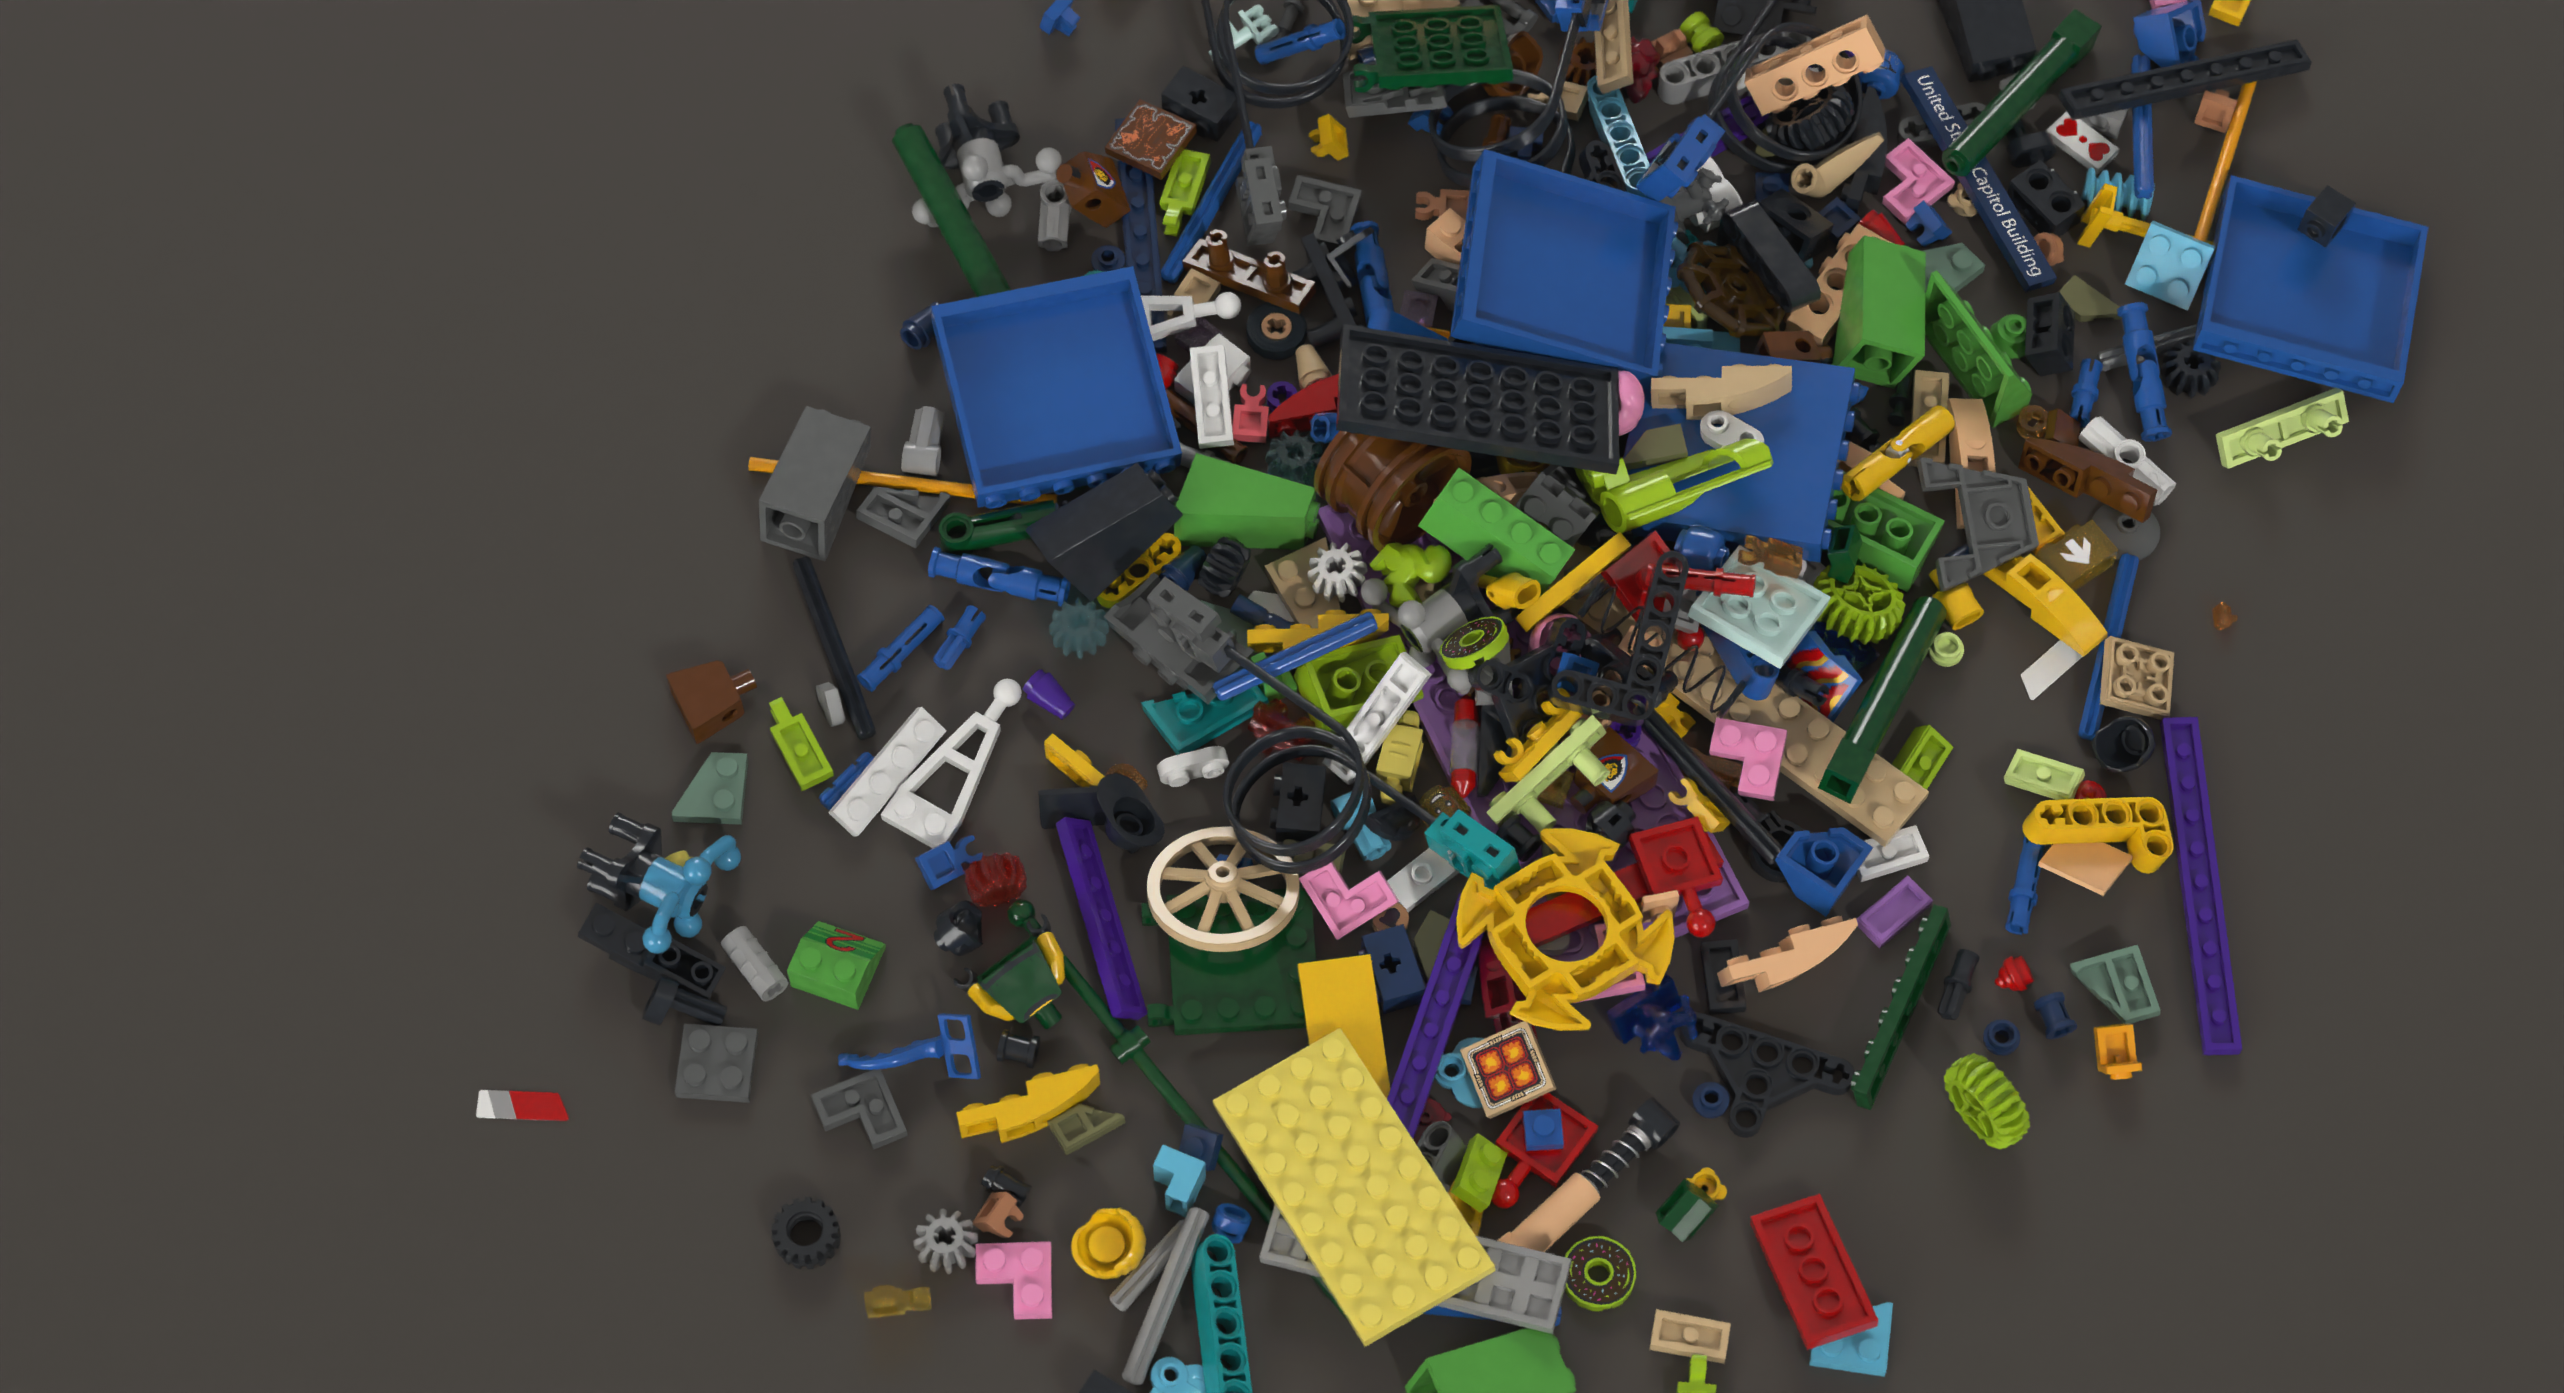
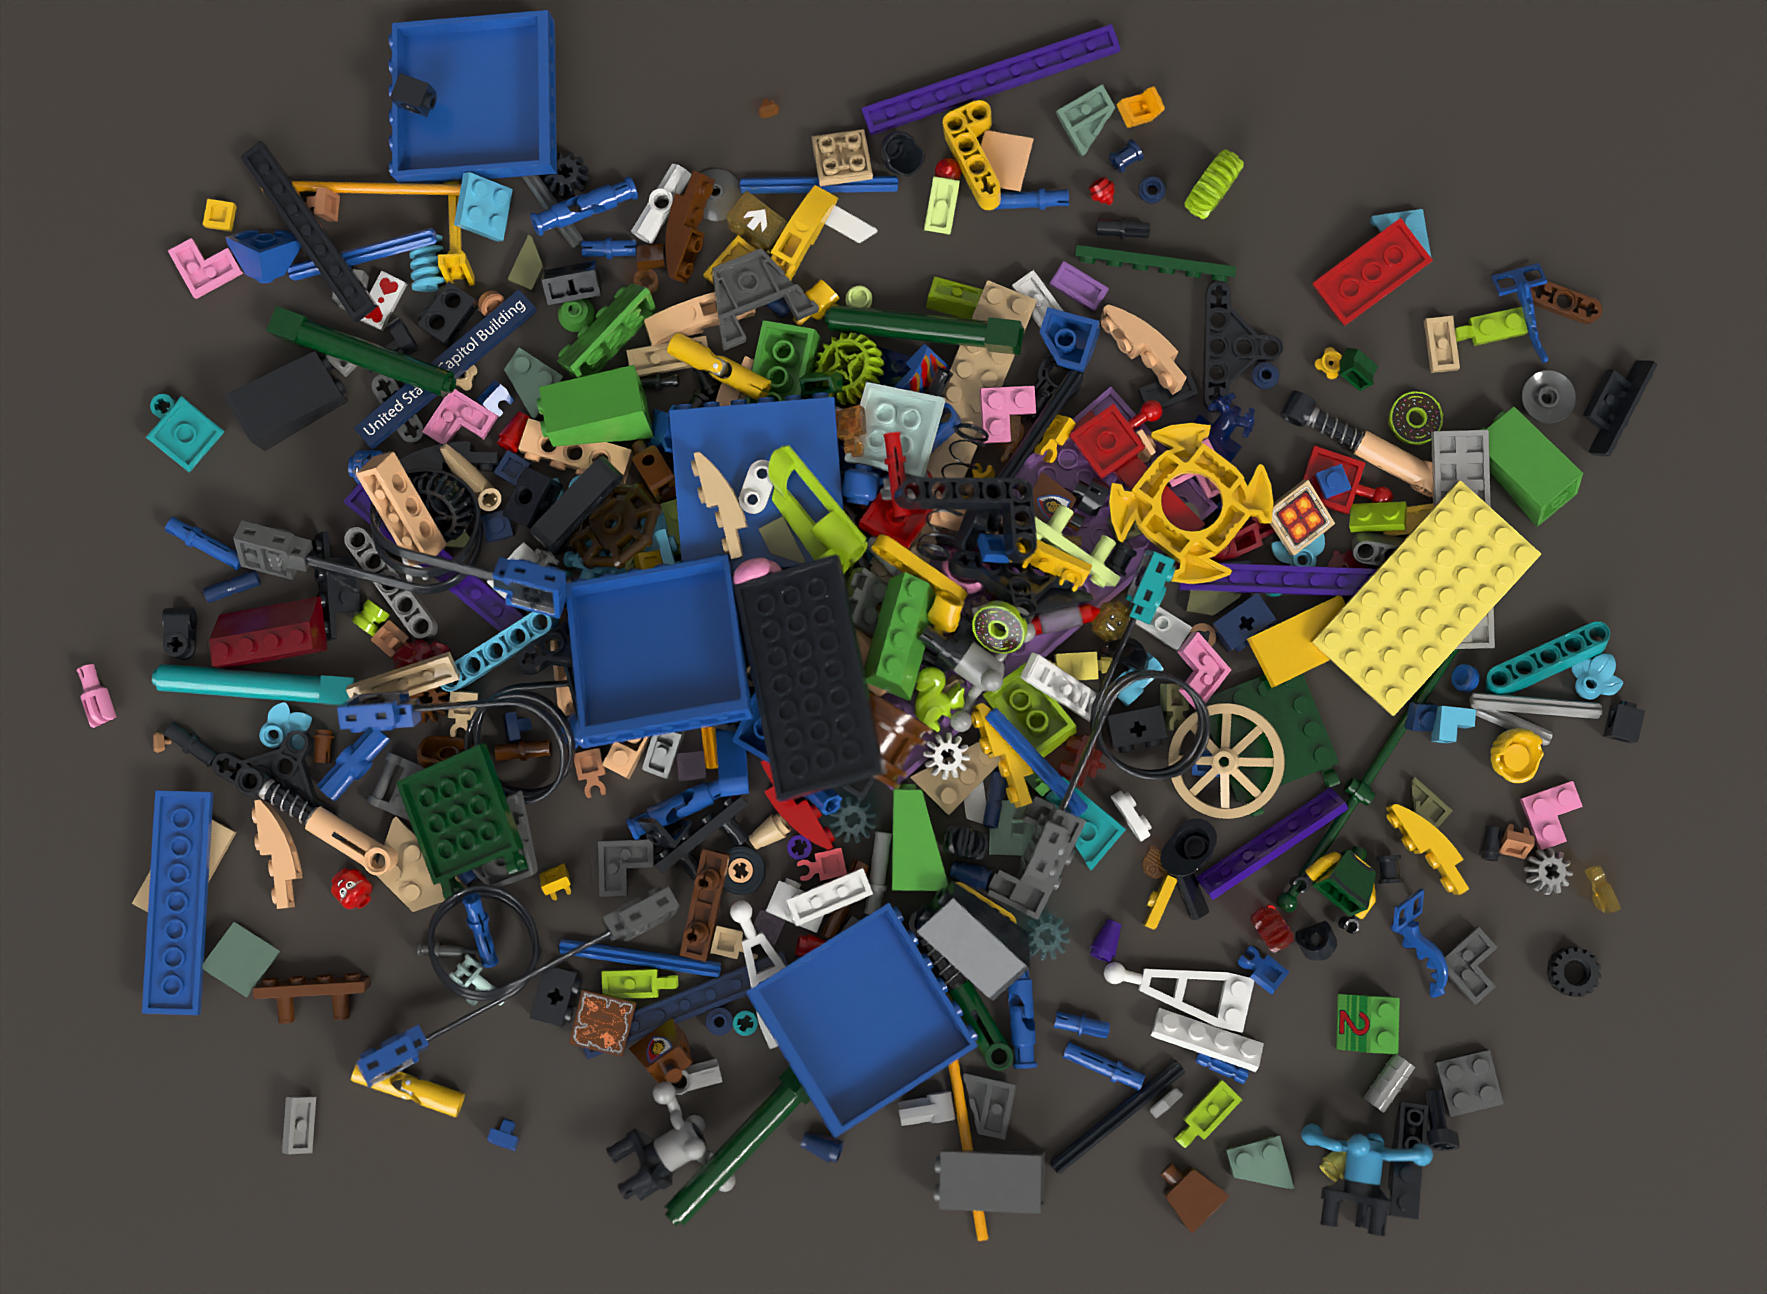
camera: 110 degrees left, 20 degrees up
(521, 1105) = (1544, 1213): sticker -> none
(2283, 427) = (611, 112): yellowish green plate -> none

